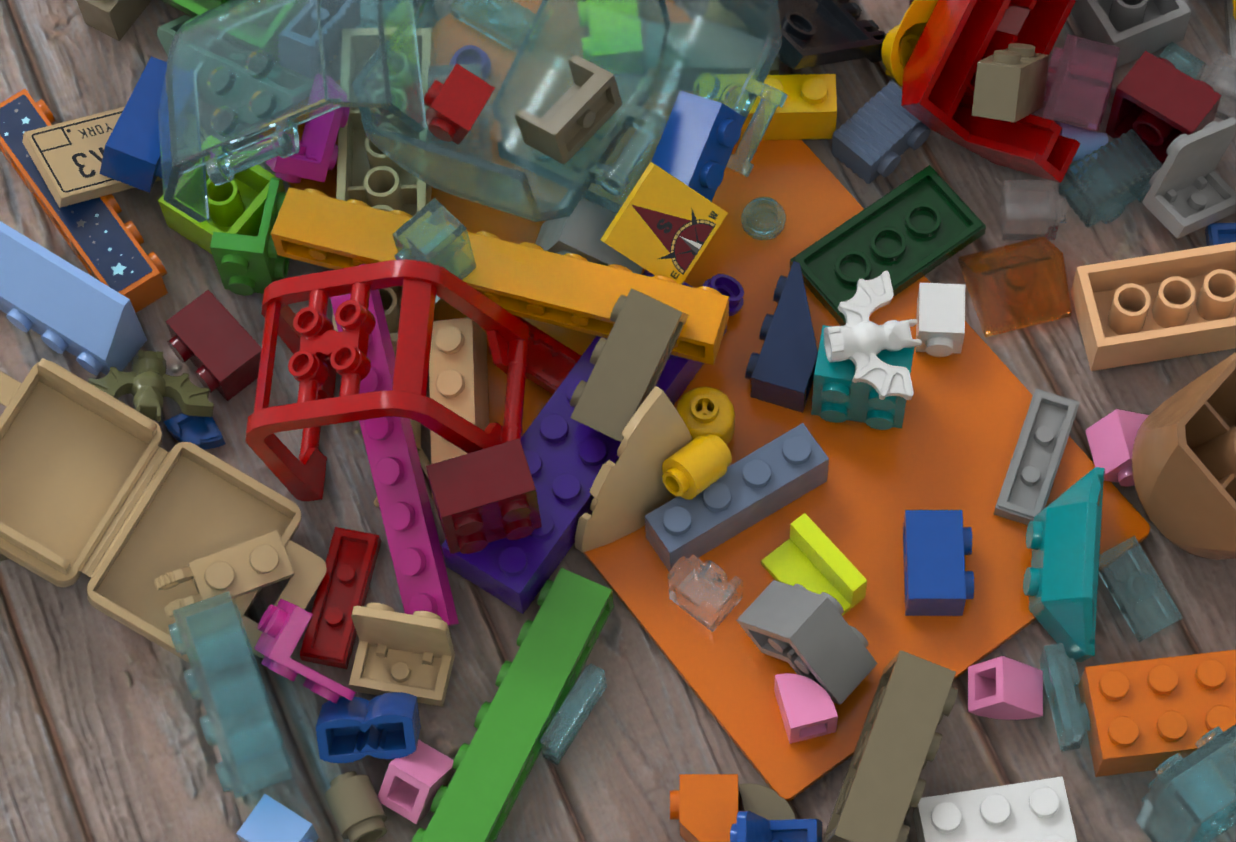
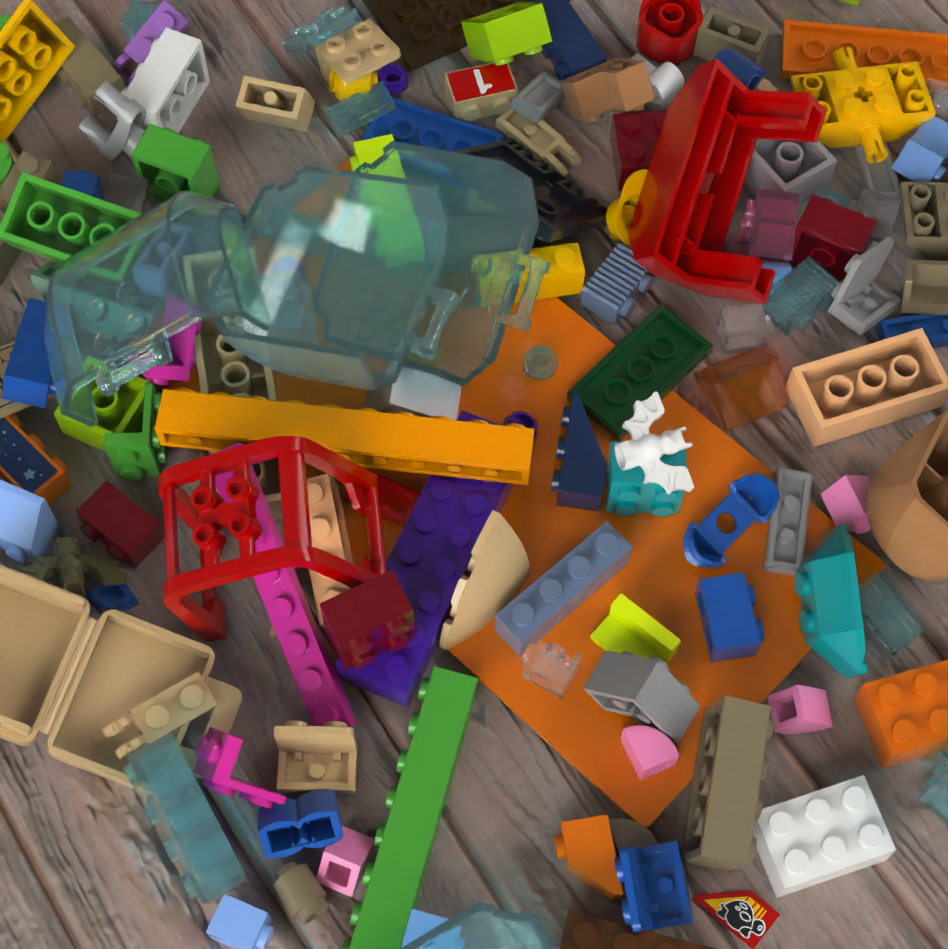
camera: 15 degrees left, 0 degrees up
(345, 585) = (257, 716): red tile -> none
(436, 238) = (295, 415): clear light blue brick -> none
(455, 104) = (290, 303): red brick -> none
(573, 713) = (463, 784): clear light blue tile -> none
(575, 115) = (386, 299): dark tan panel -> none
(627, 363) = (464, 495): dark tan brick -> none
(664, 225) = (472, 378): yellow tile -> none
(696, 466) = (531, 569): yellow brick -> none
(698, 142) = (485, 312): blue brick -> none
(707, 412) = (531, 526): yellow head -> none
(940, 318) = (697, 416): white brick -> none
(993, 424) = (749, 500): none -> blue piece
(1010, 83) = (718, 232): dark tan brick -> none
(1060, 677) = (841, 696): clear light blue plate -> none

